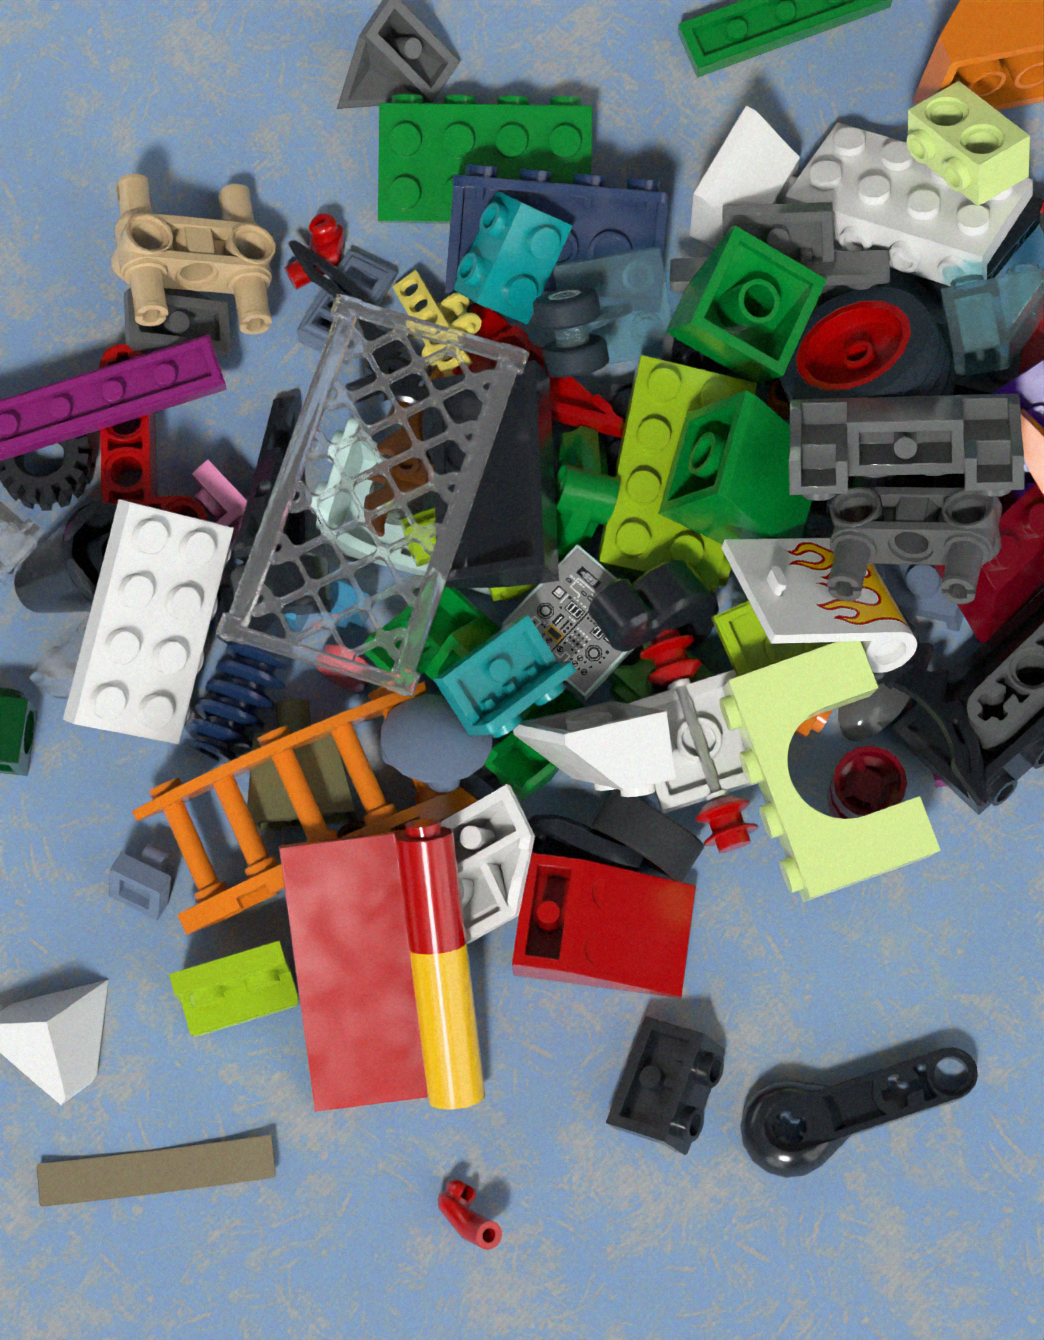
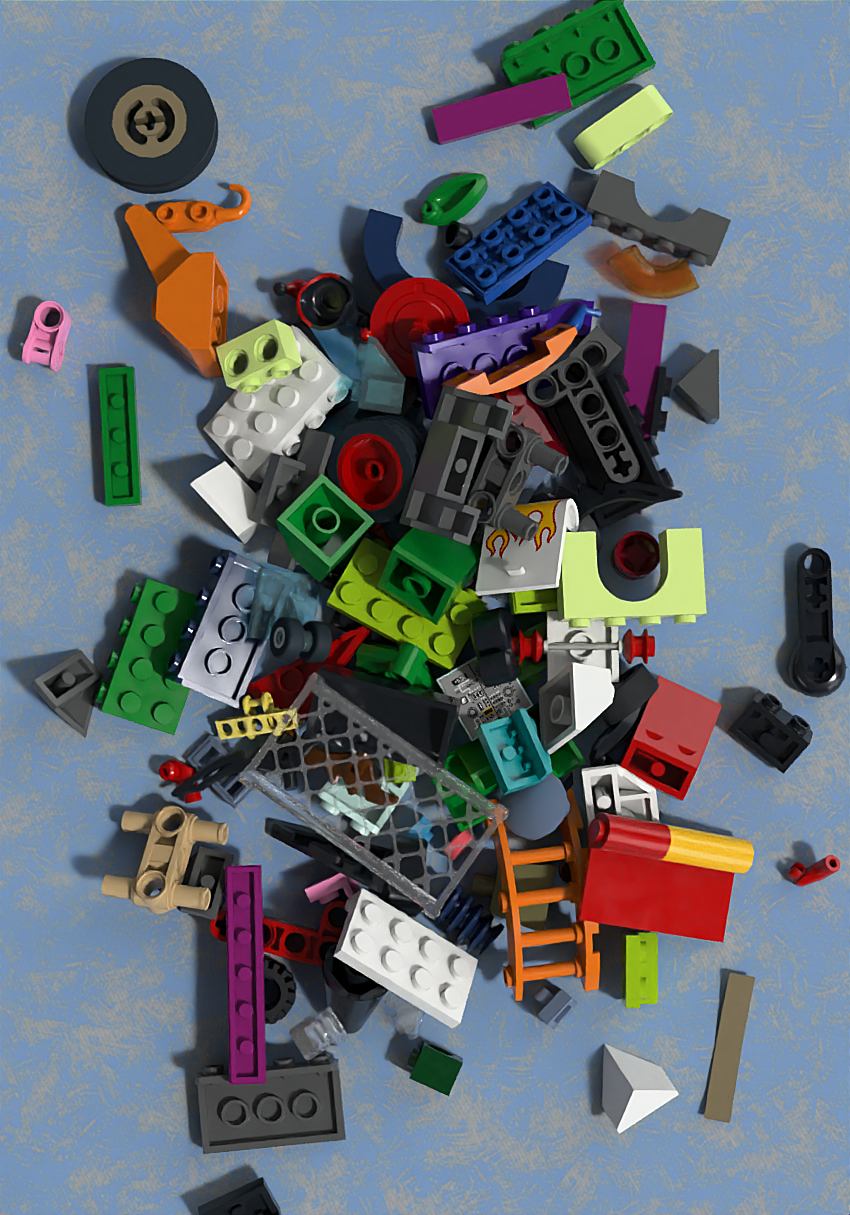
camera: 75 degrees left, 10 degrees up
(511, 257) = (234, 661): teal bracket -> none

